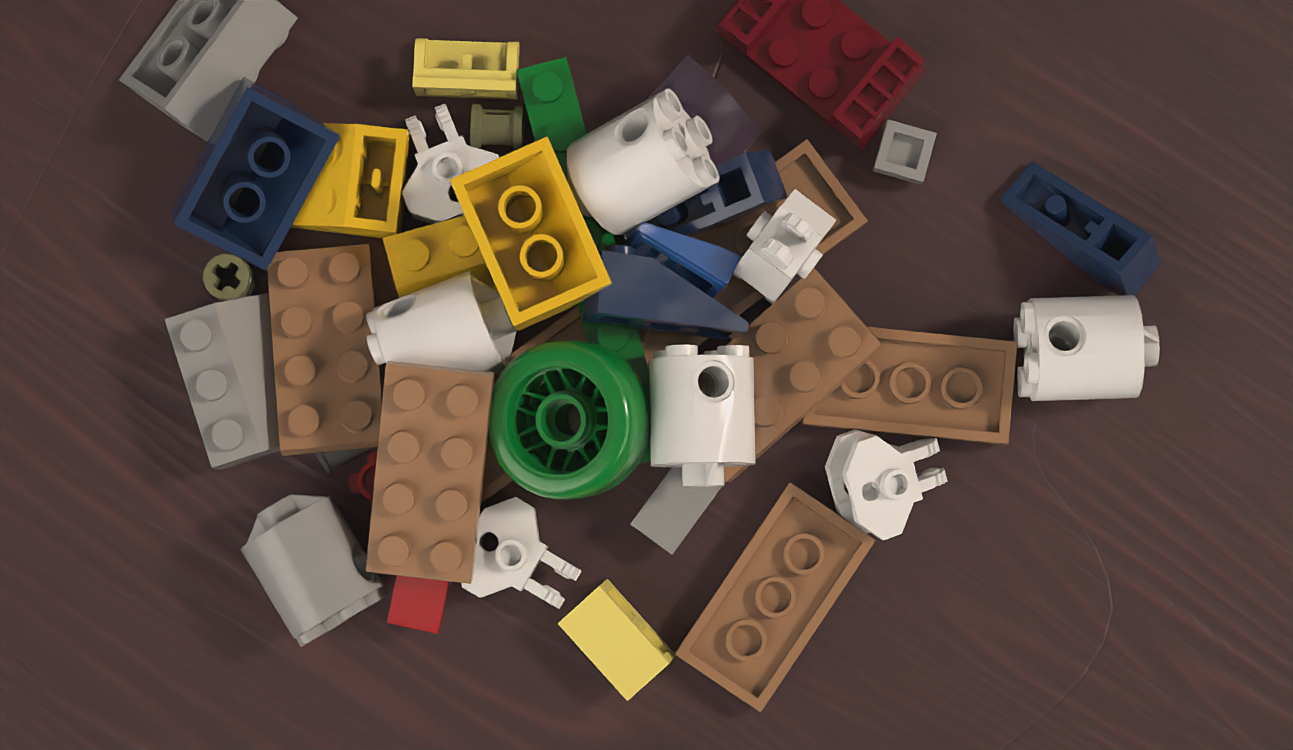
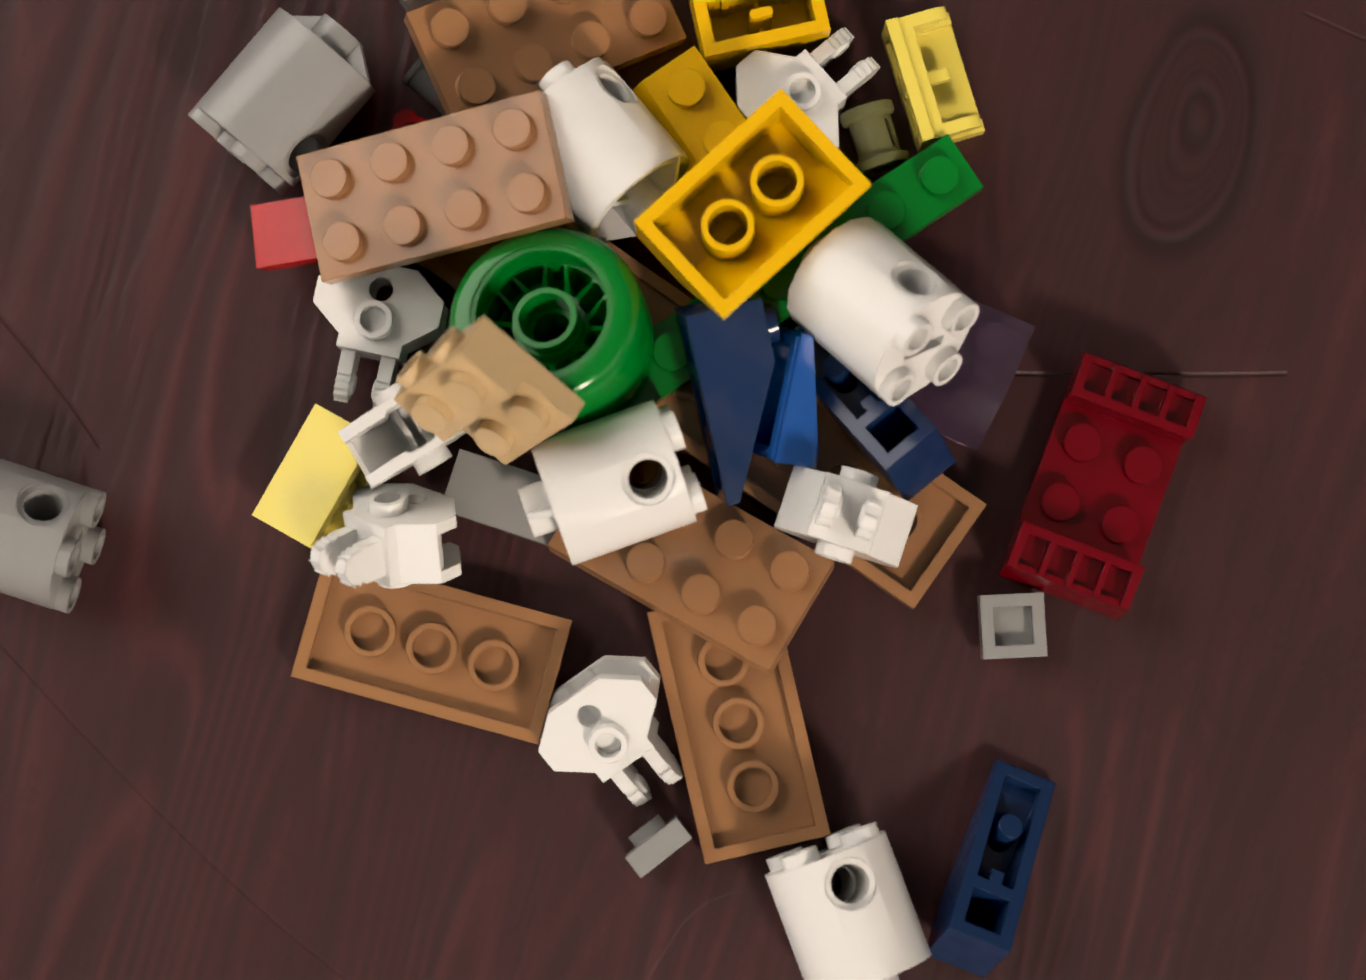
camera: 80 degrees right, 0 degrees up
(605, 480) = (486, 388): none -> tan plate
(605, 552) = (391, 442): none -> white hinge
(685, 597) = (391, 539): none -> white hinge
(980, 475) = (655, 843): none -> light grey plate

